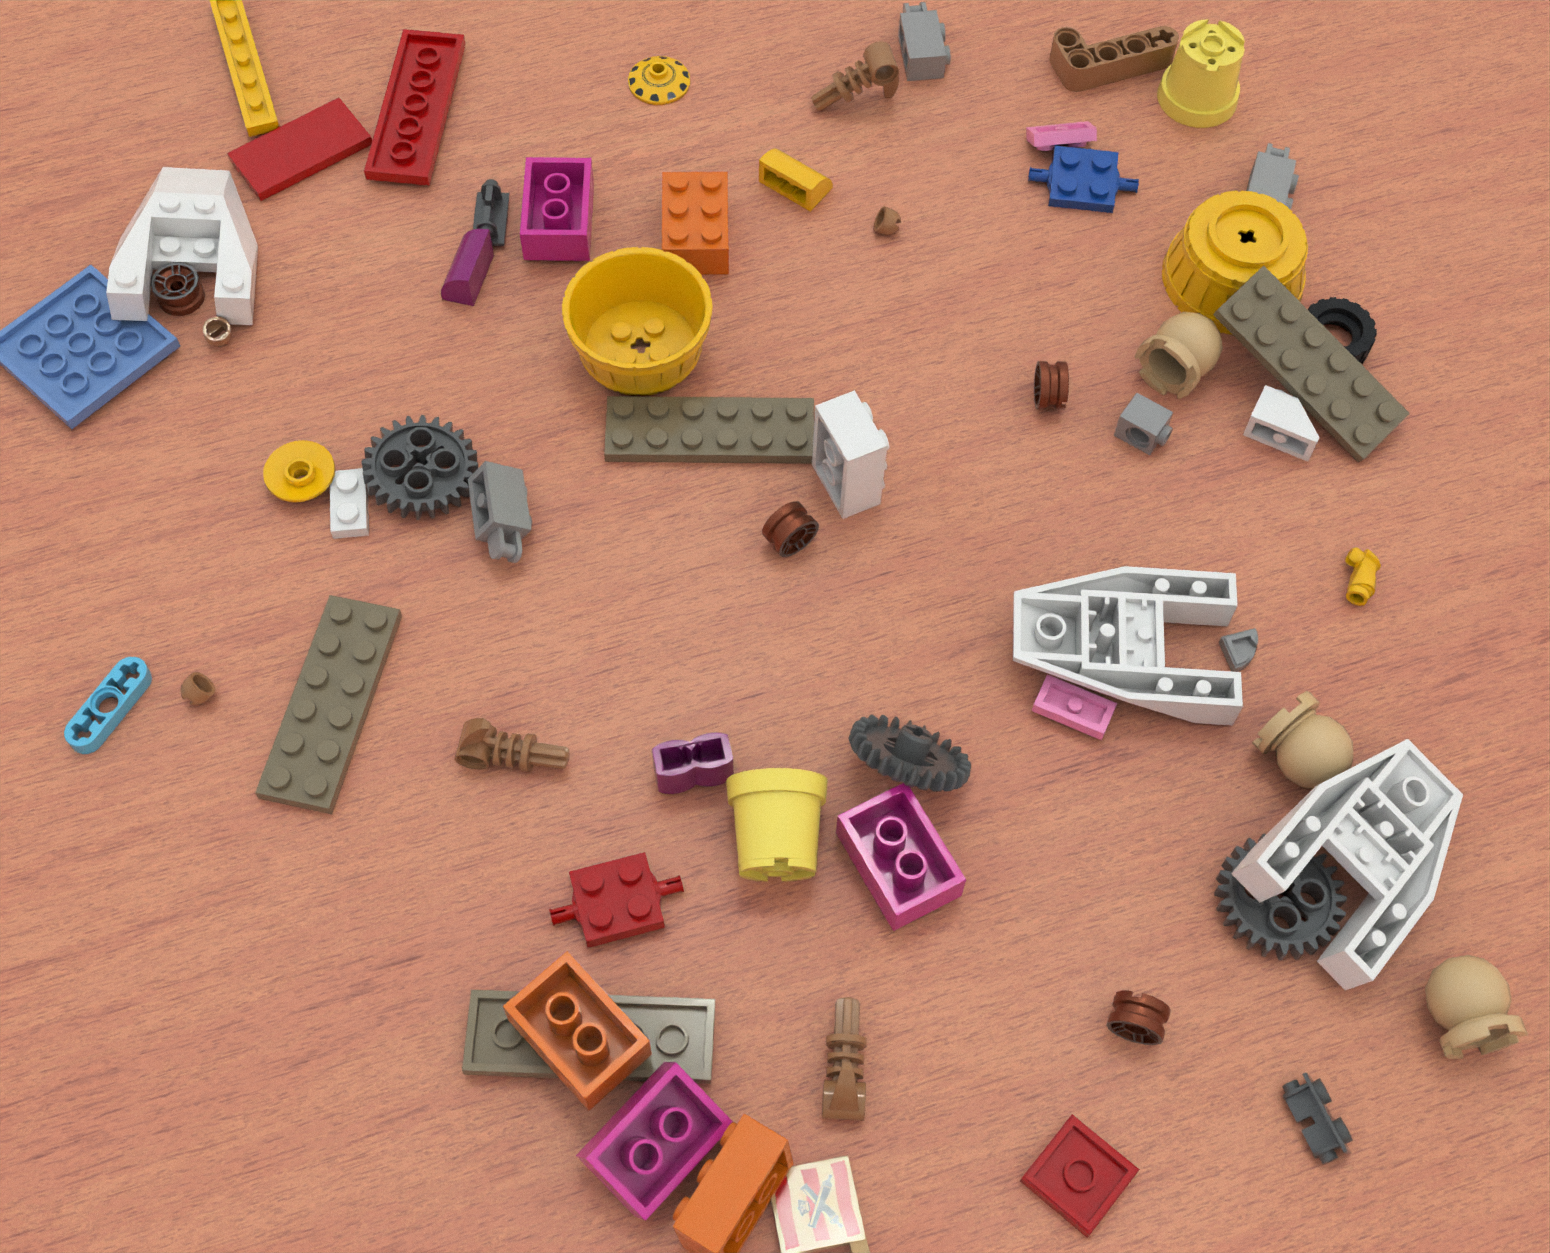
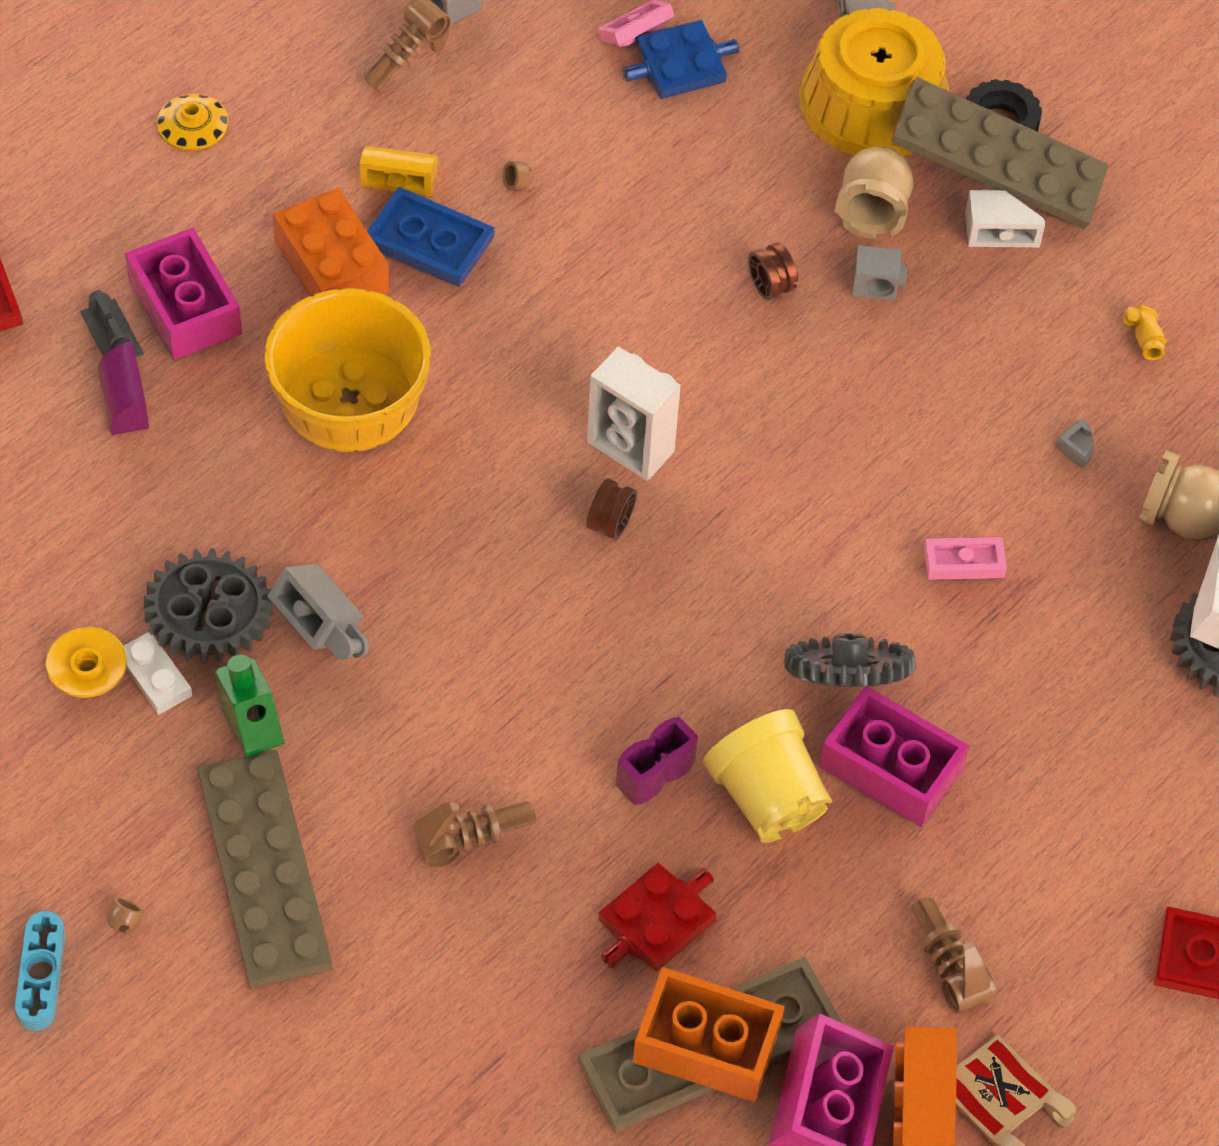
camera: 30 degrees left, 5 degrees down
(394, 546) = (239, 688): none -> green torso
(709, 429) = (468, 450): dark tan plate -> none
(784, 242) = (430, 236): none -> blue plate
(1110, 637) = (965, 478): white wedge -> none
(1138, 1018) = (1178, 798): copper wheel -> none

